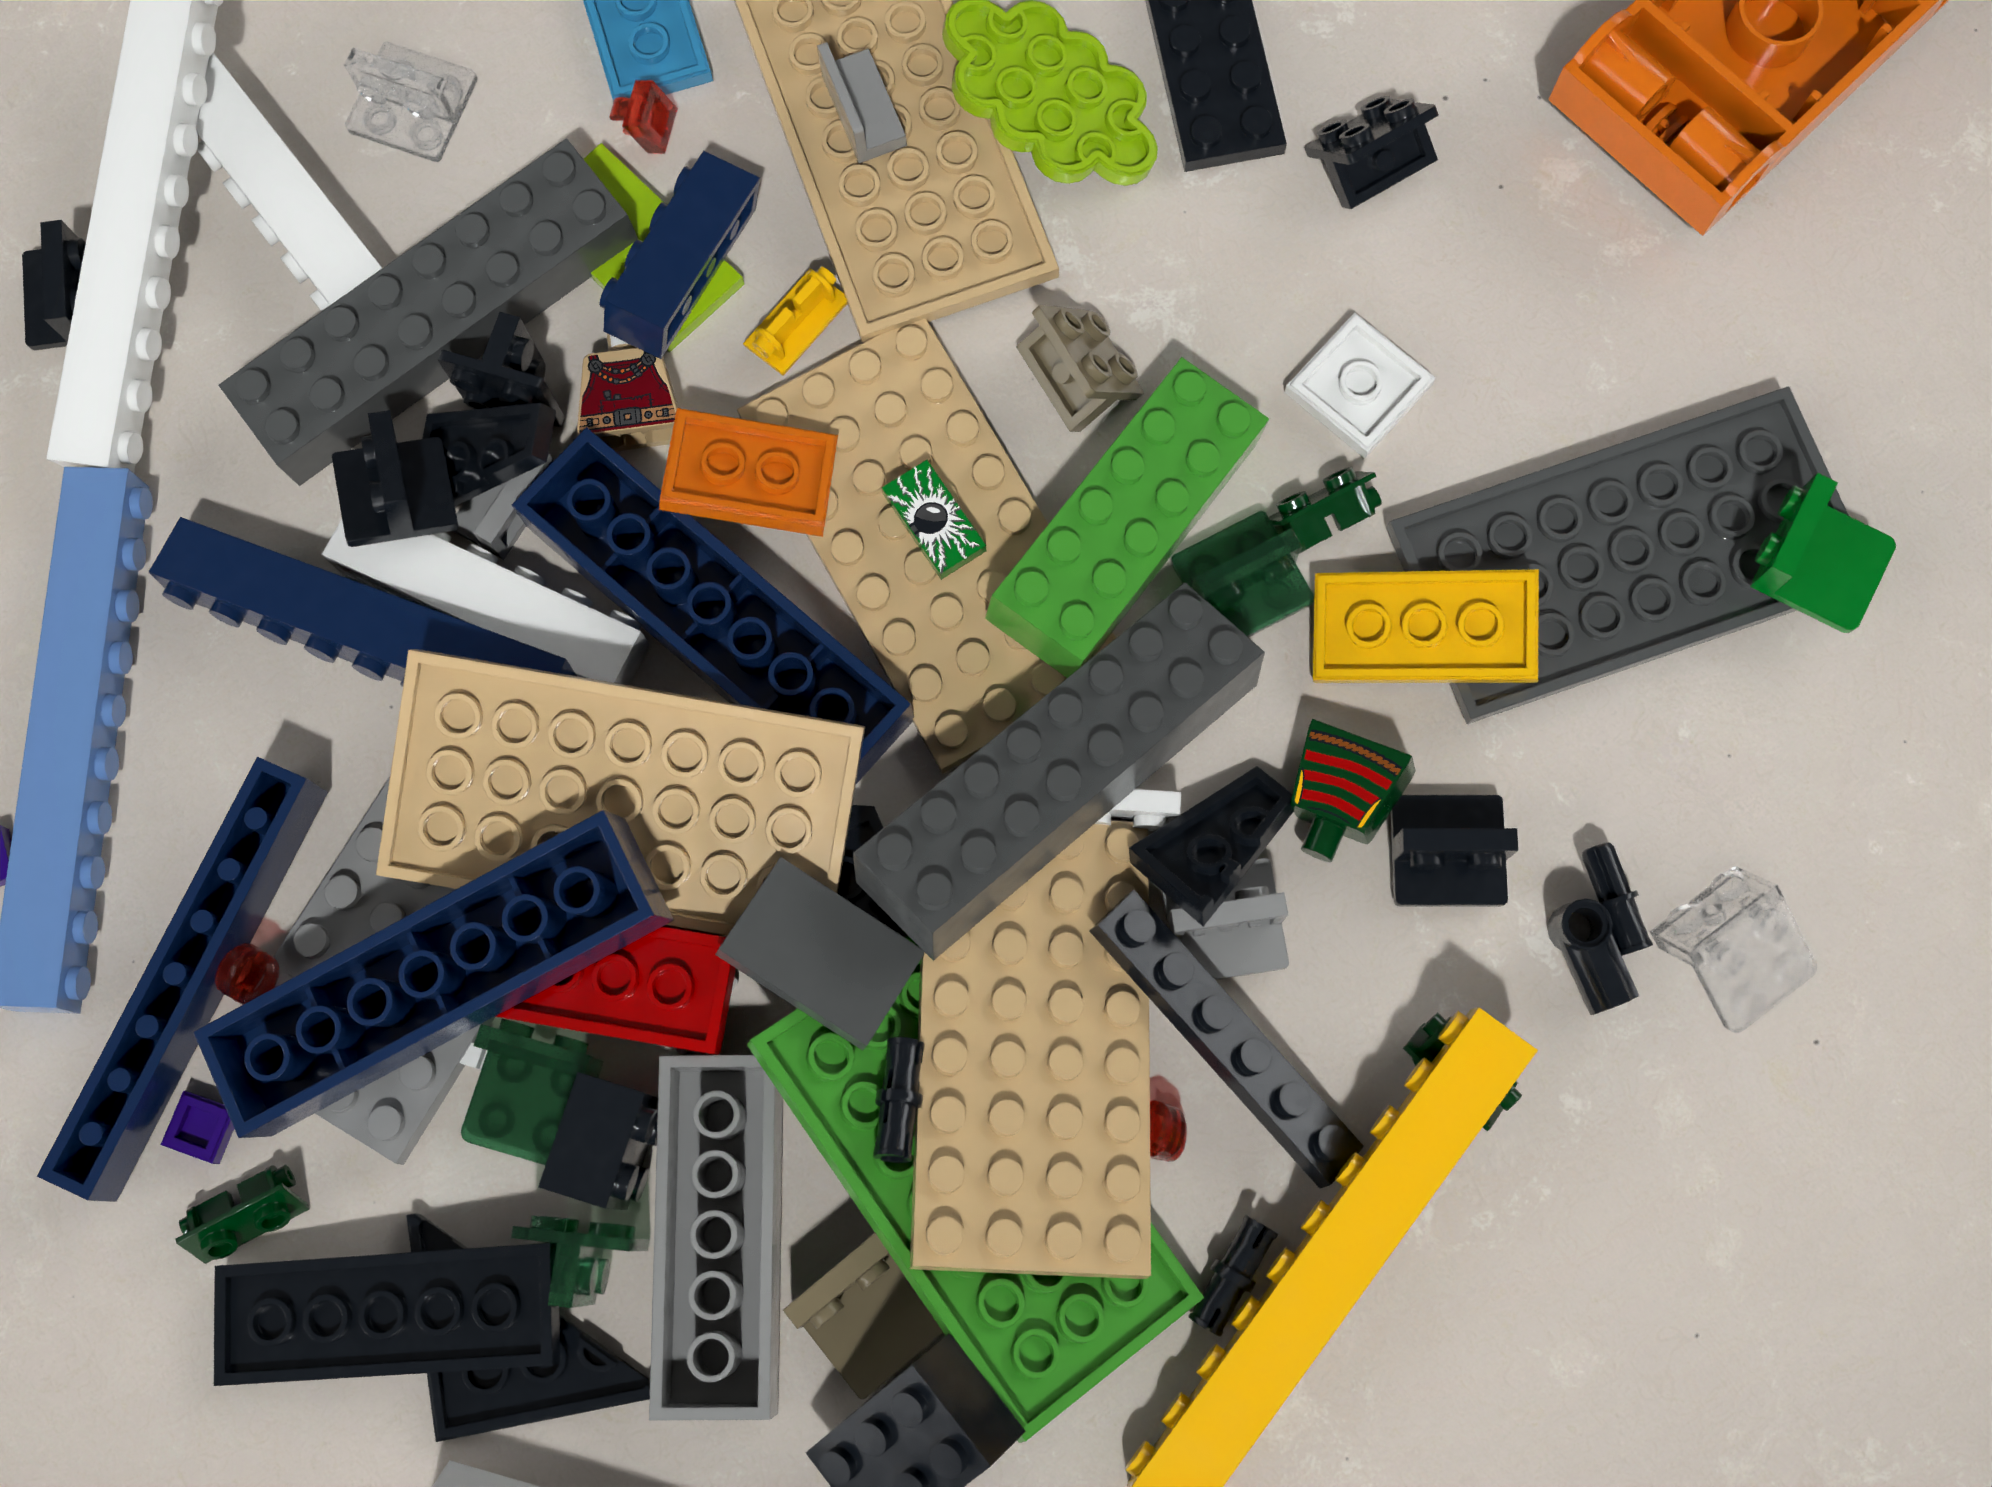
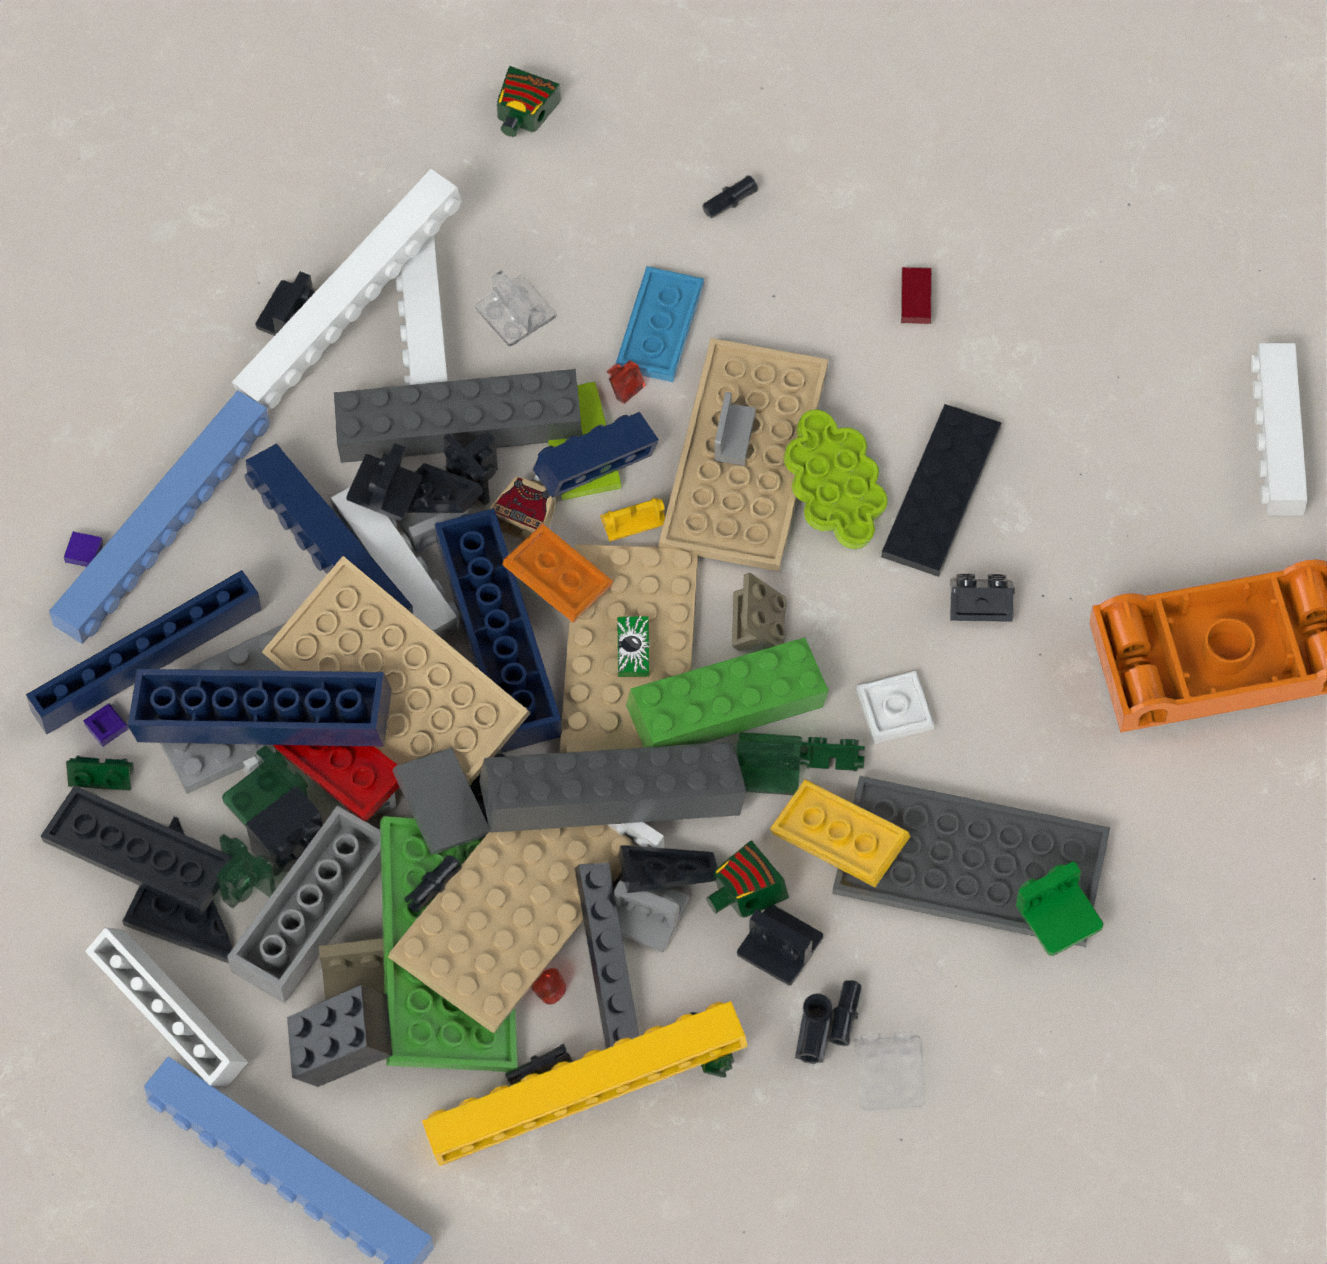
camera: 30 degrees right, 15 degrees down
(242, 971) = (172, 660): clear red tile -> none

